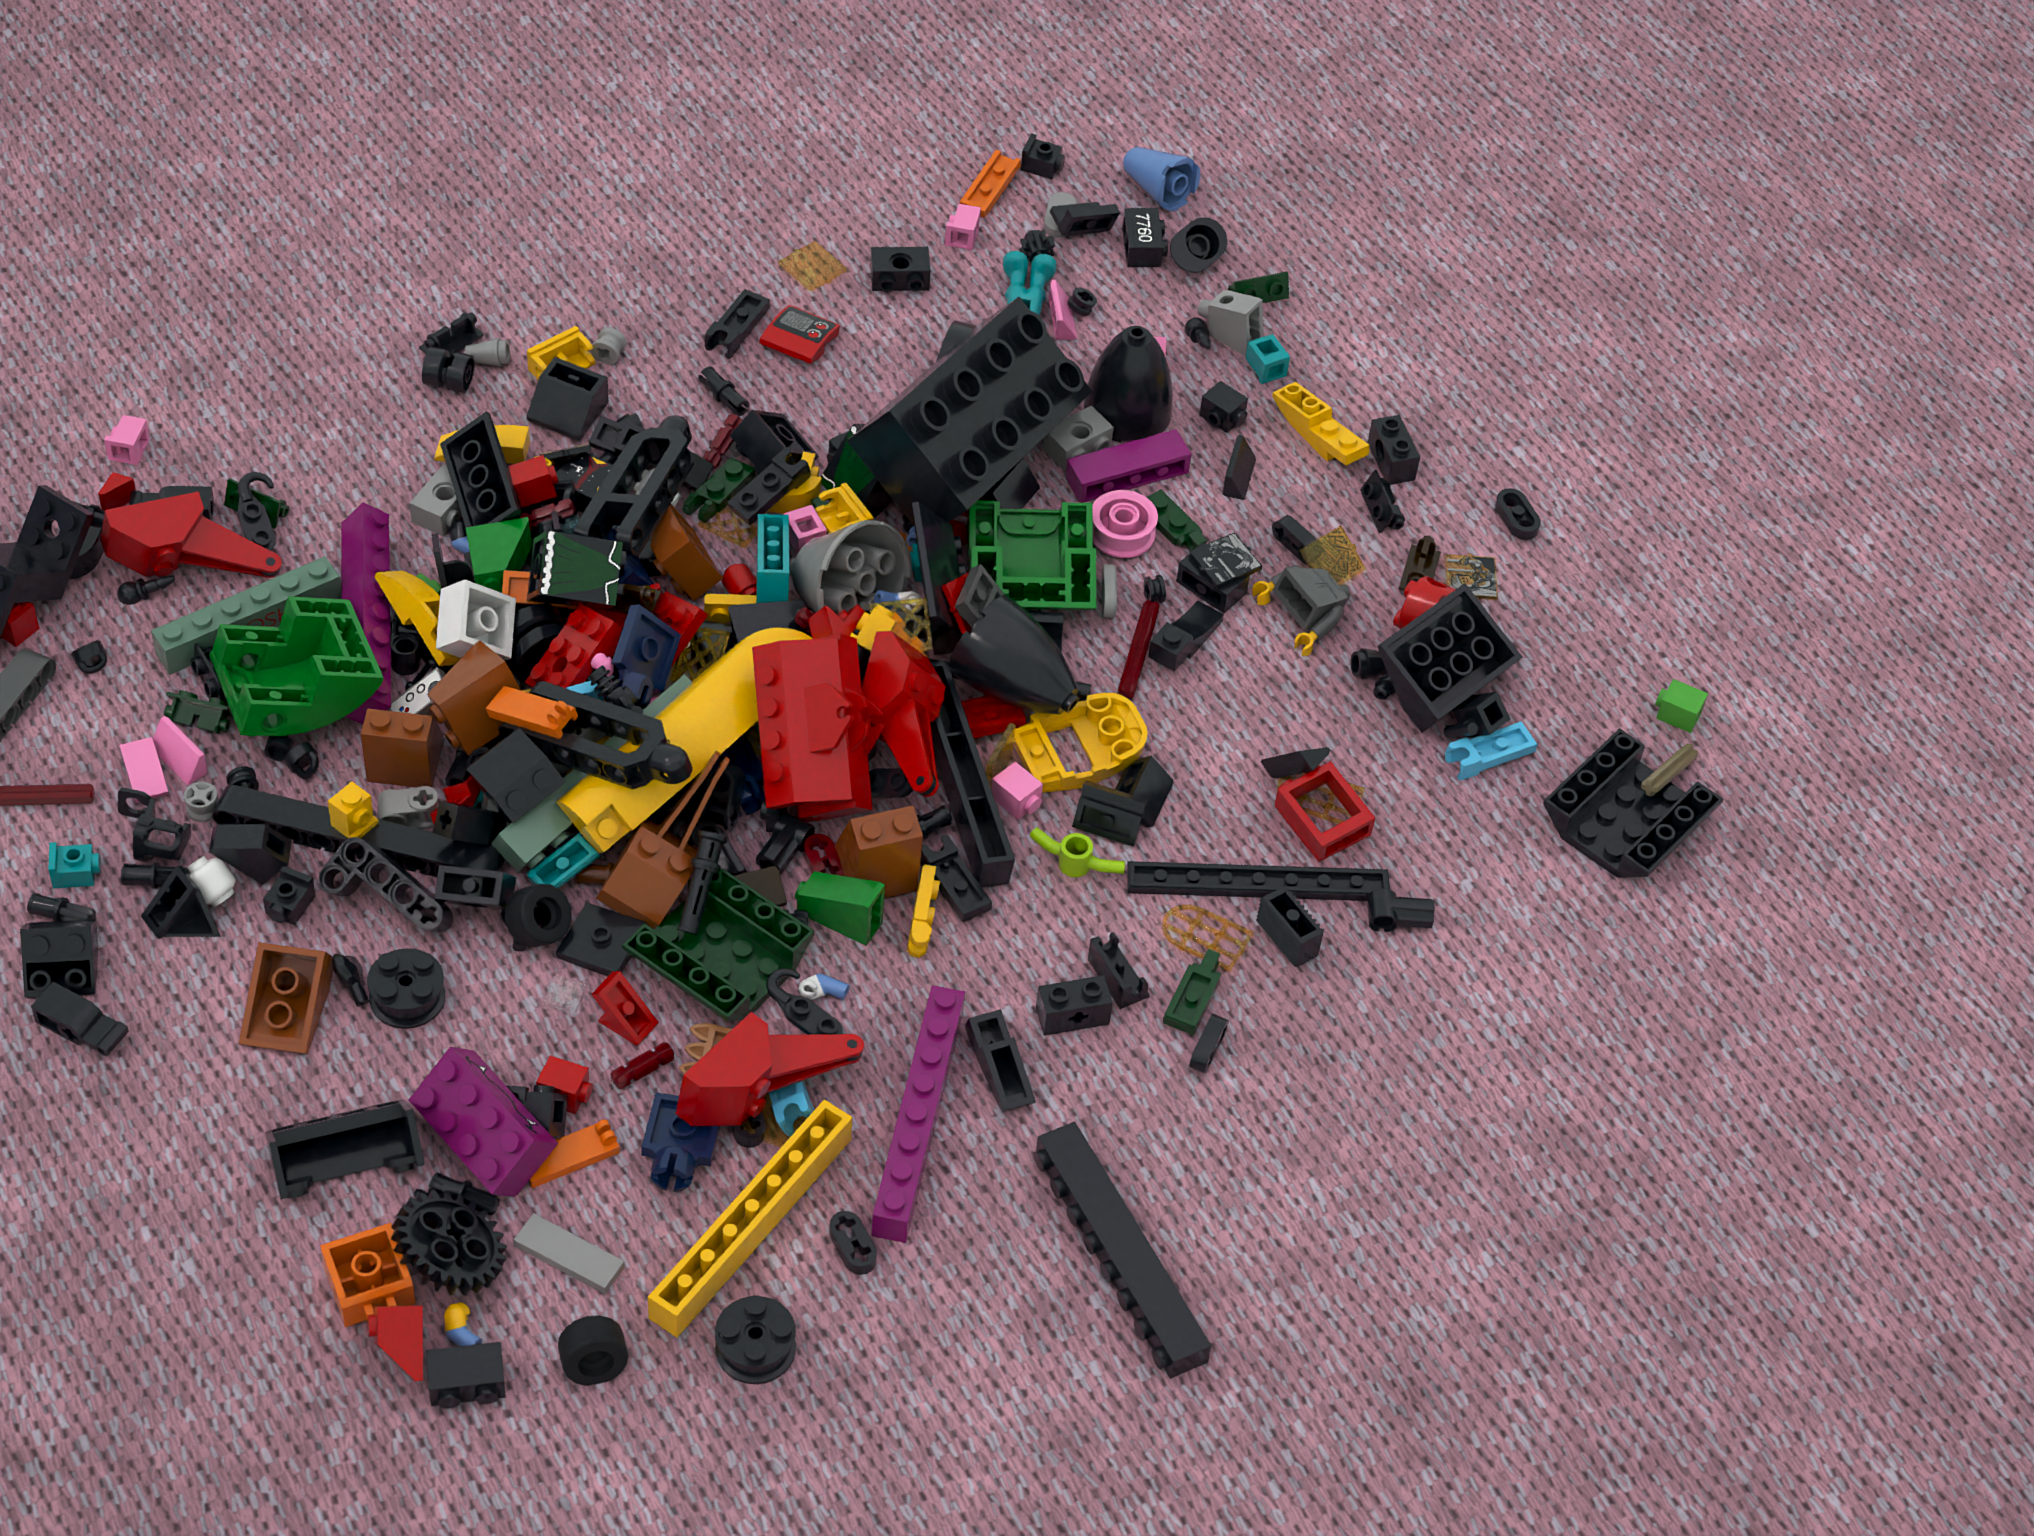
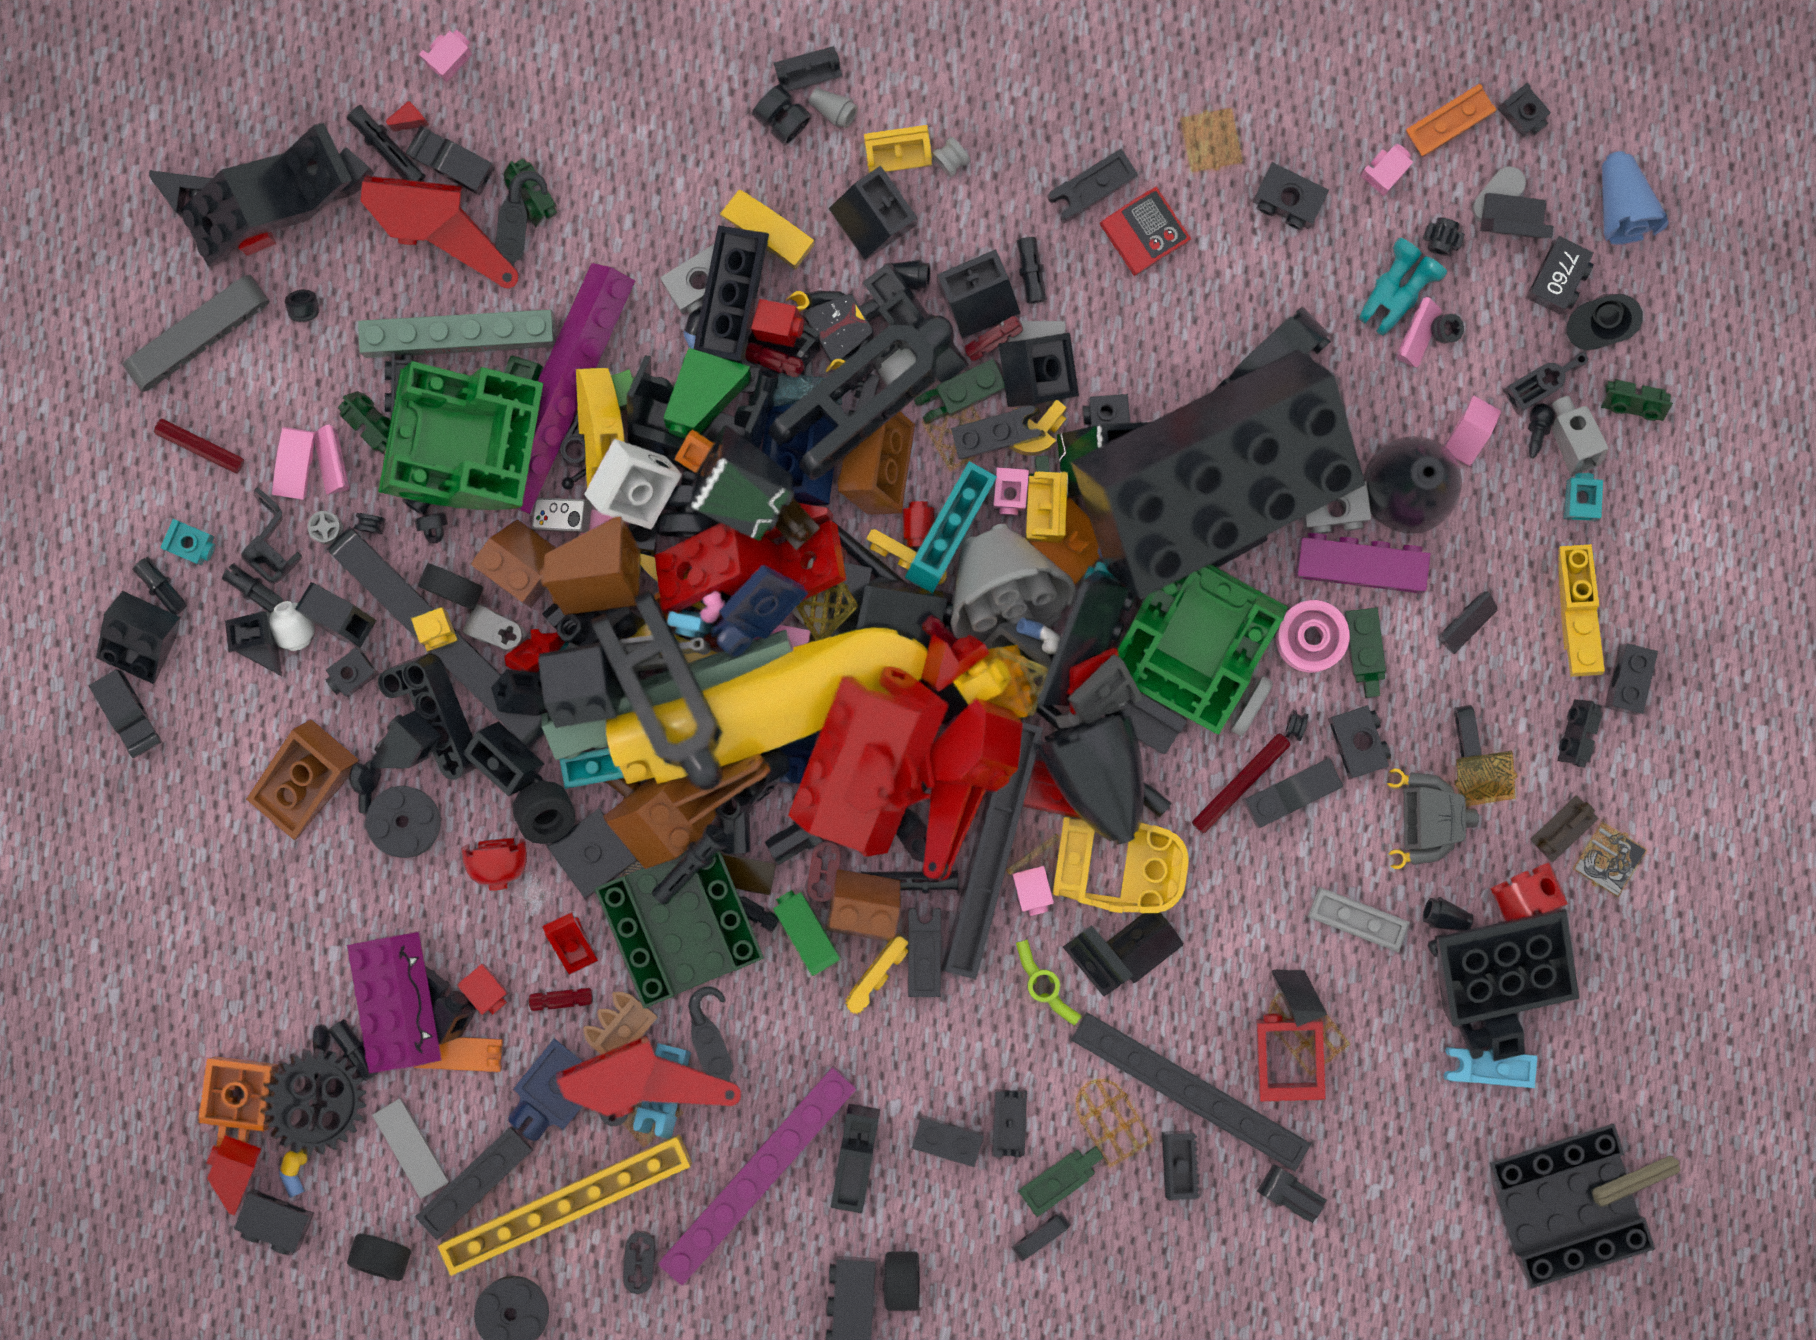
camera: 35 degrees right, 35 degrees up
(133, 592) = (374, 244): black bar -> none
(344, 771) = (450, 586): none -> black tyre
(344, 1145) = (275, 946): black windscreen -> none
(375, 916) = (406, 743): none -> black slope
(514, 972) = (495, 862): none -> red cylinder
(531, 711) = (619, 633): orange hinge -> none
(566, 451) = (836, 281): black piece -> none
(615, 695) = (704, 652): black piece -> none
(649, 1250) = (473, 1183): none -> black plate
(694, 402) = (978, 294): none -> black slope
(822, 985) = (750, 998): arm -> none
(1110, 1130) = (902, 1281): none -> black tyre
(1178, 303) = (1541, 390): none -> black piece
(1224, 407) = (1500, 540): black brick -> none
(1225, 560) = (1375, 739): piece -> none
(1304, 700) = (1358, 919): none -> light grey tile
(1522, 518) = (1706, 815): black plate -> none
(1680, 705) = (1699, 1115): bright green brick -> none

